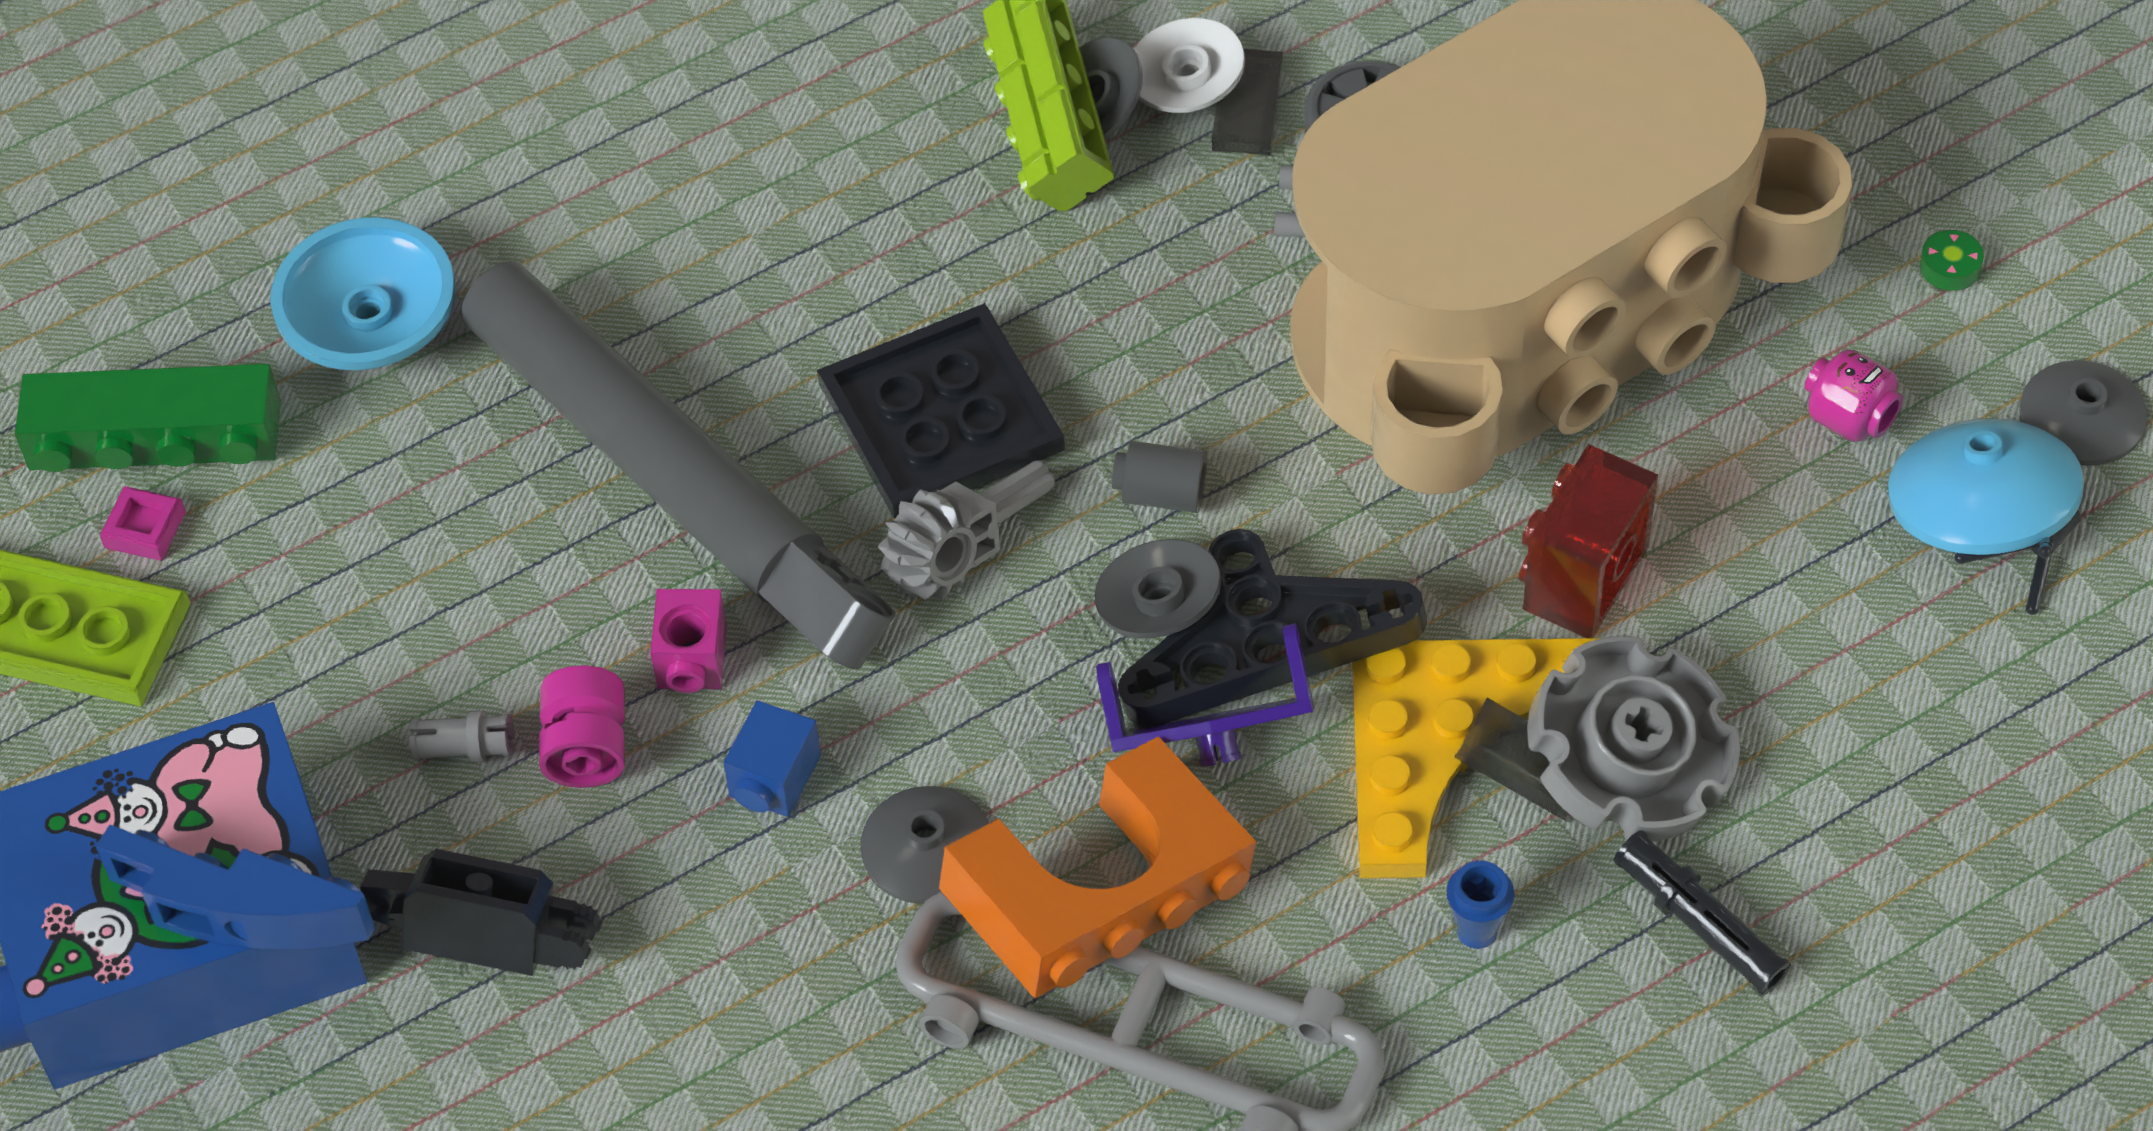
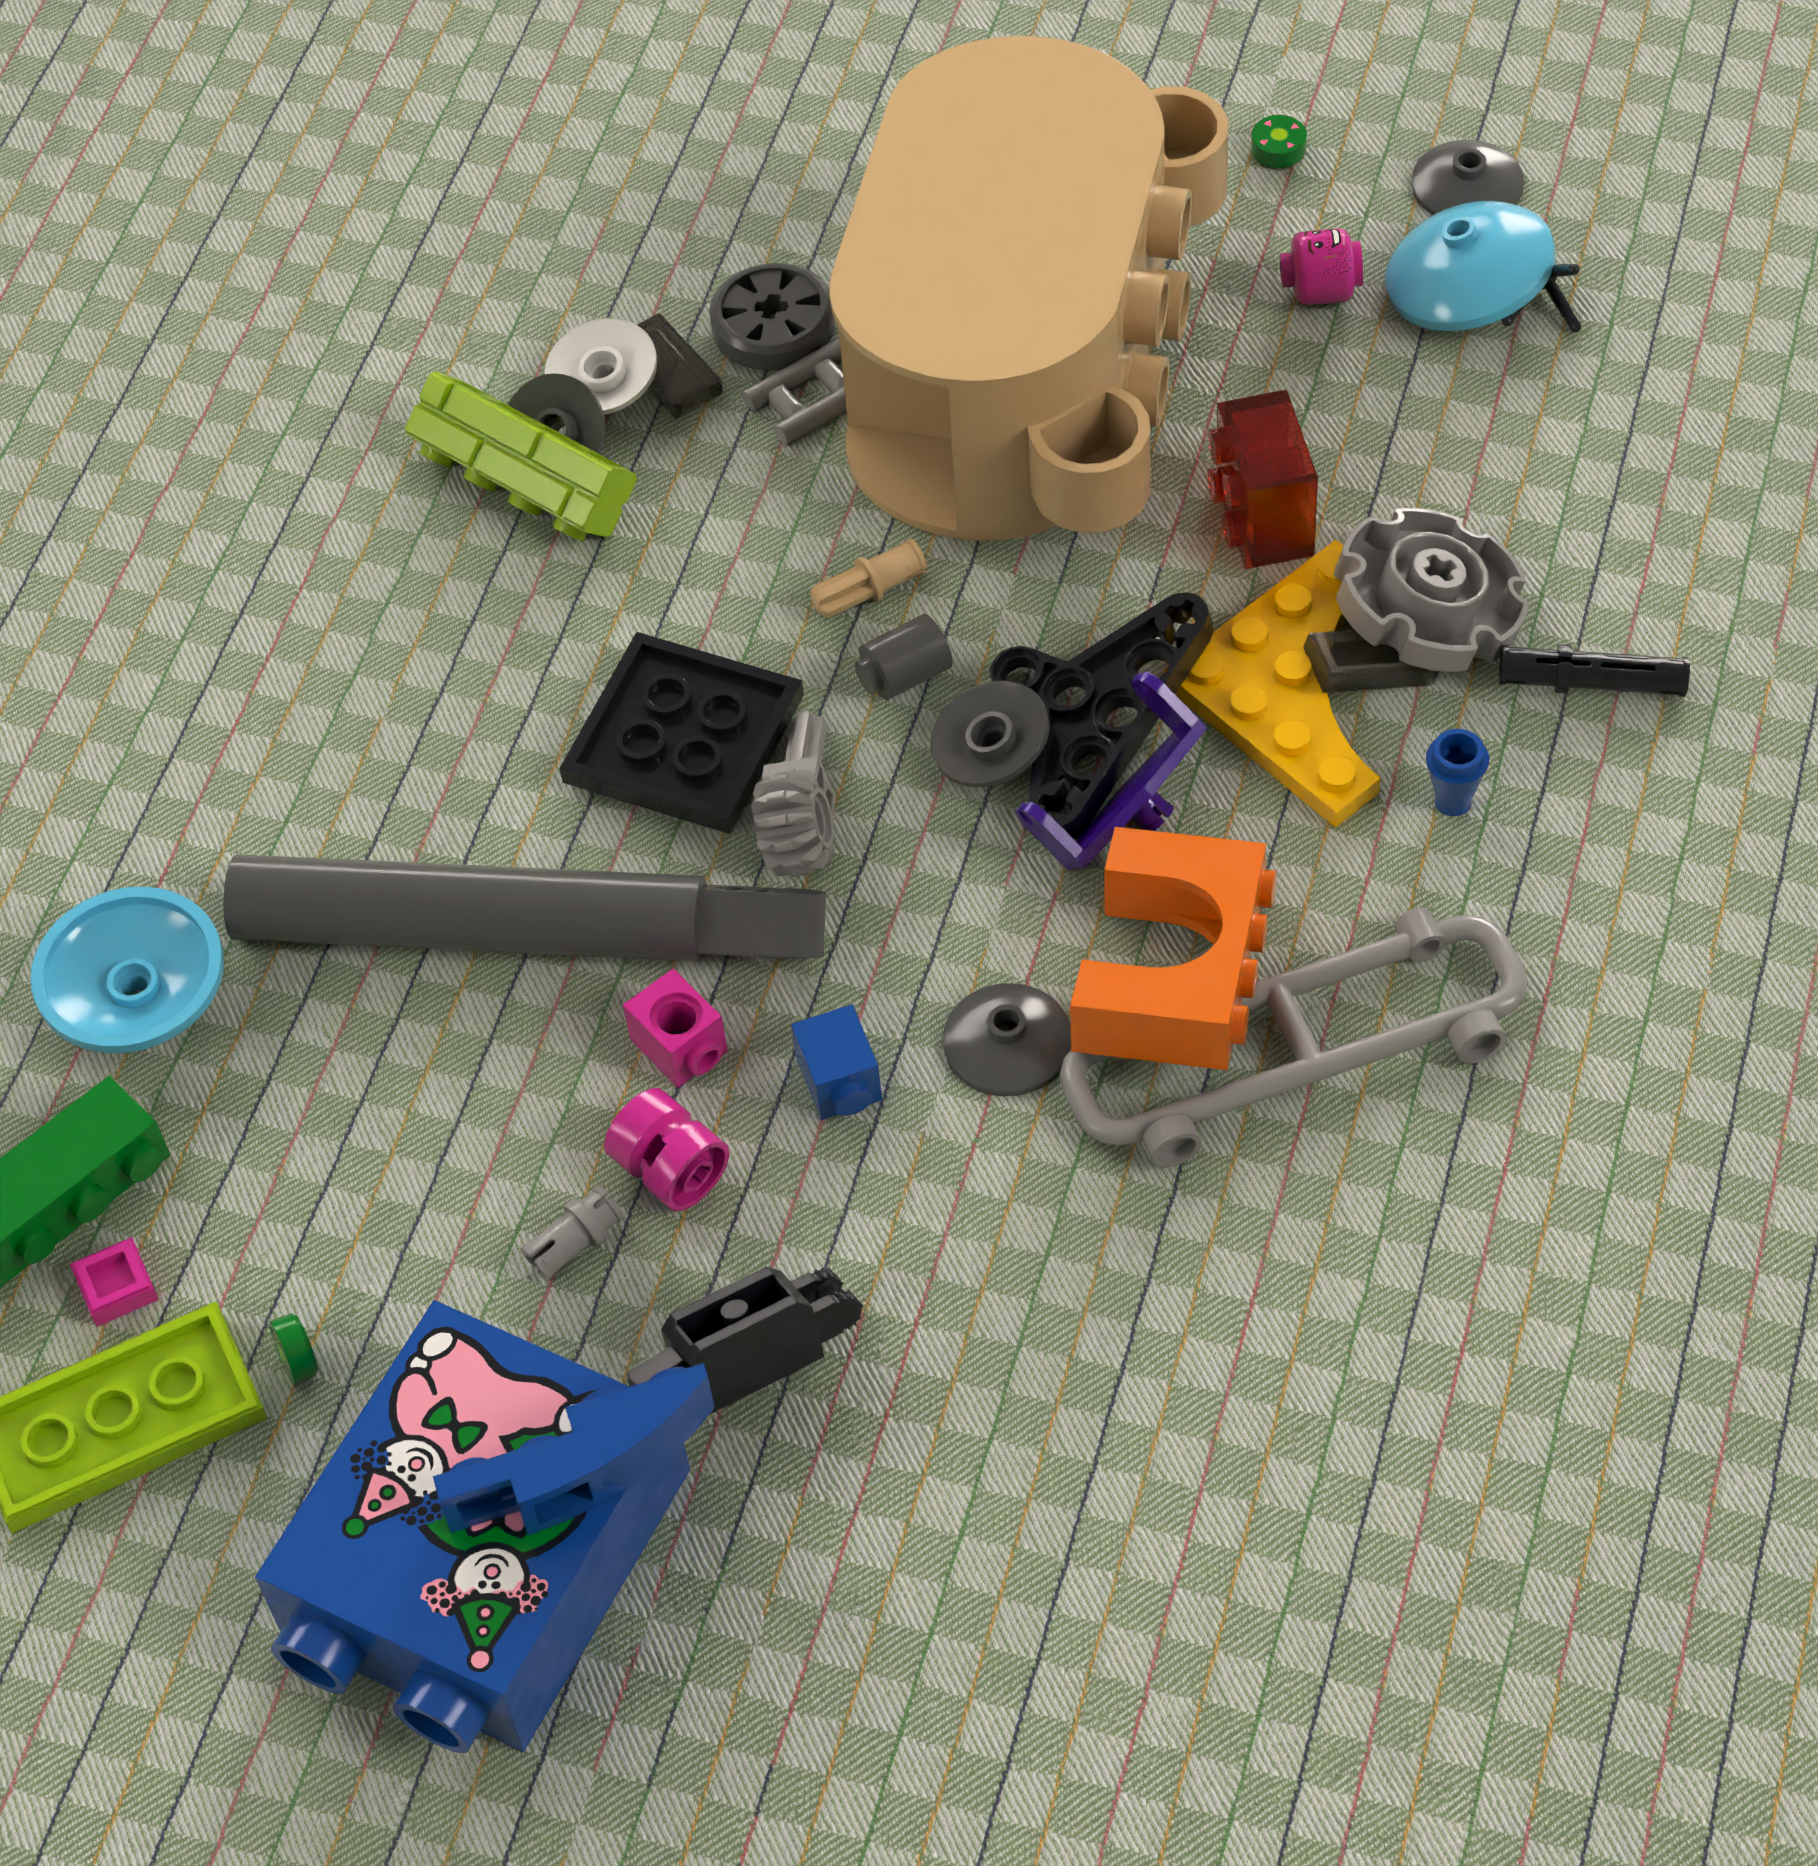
camera: 40 degrees left, 0 degrees up
(195, 667) = (293, 1348): none -> green tile
(1209, 392) = (869, 579): none -> tan axle

